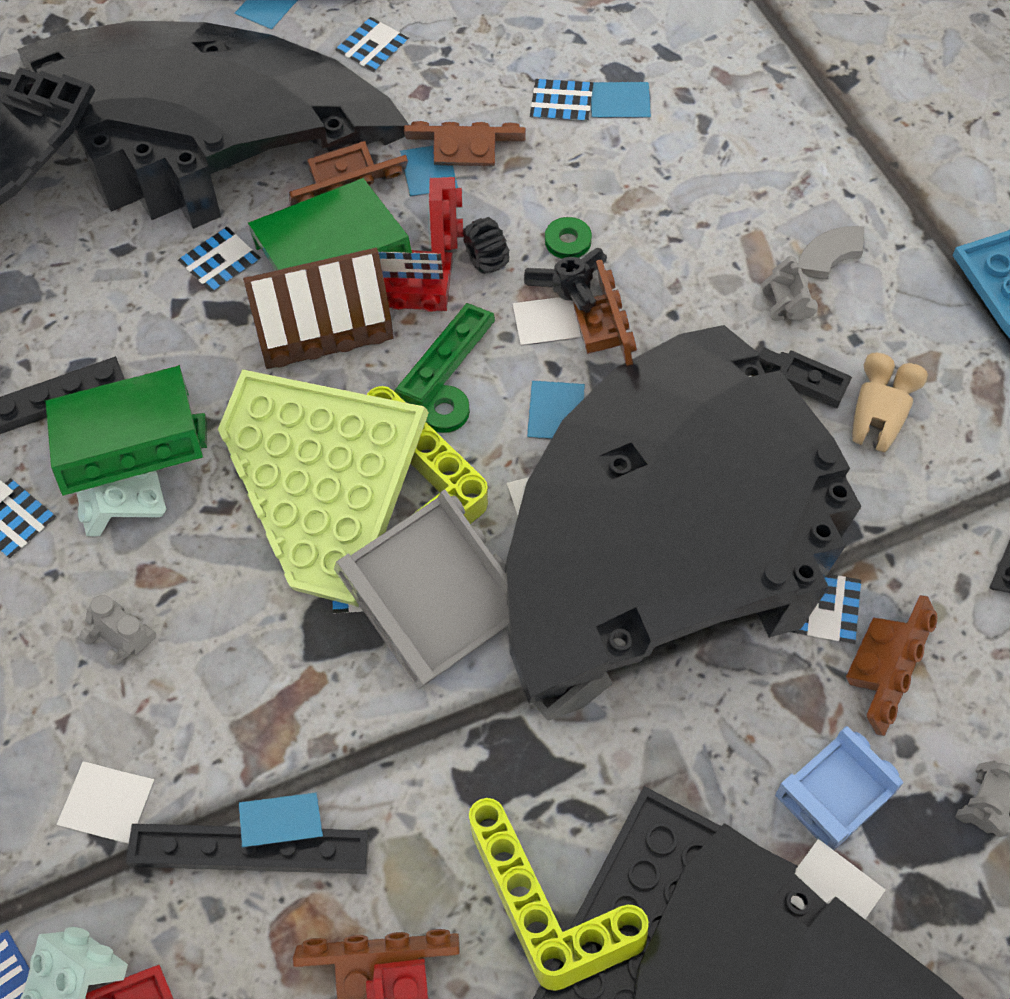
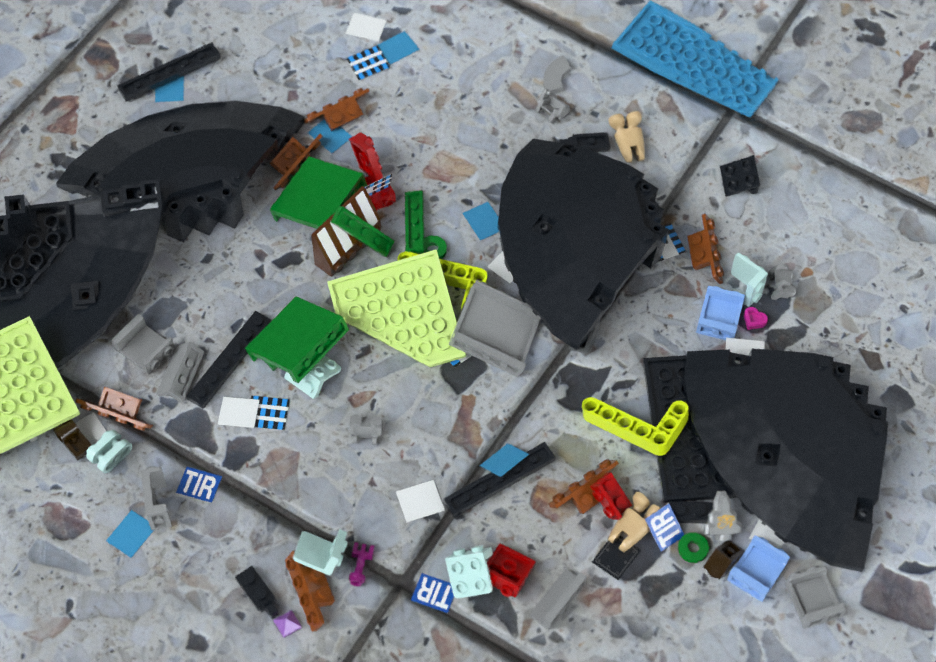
camera: 35 degrees left, 0 degrees up
(219, 259) = (261, 236): sticker -> none
(339, 319) = (362, 231): none -> green tile
(372, 44) = (245, 81): sticker -> none
(486, 245) = (395, 158): black gear -> none
(546, 320) = (447, 180): white sticker -> none
(569, 278) = (447, 154): black bush -> none
(572, 226) = (427, 141): green piece -> none
(597, 51) = (366, 26): none -> white sticker
(605, 324) = (477, 165): dark orange bracket -> none
(898, 835) = (754, 318): none -> dark pink tile
(942, 757) = (750, 275): none -> light aqua bracket

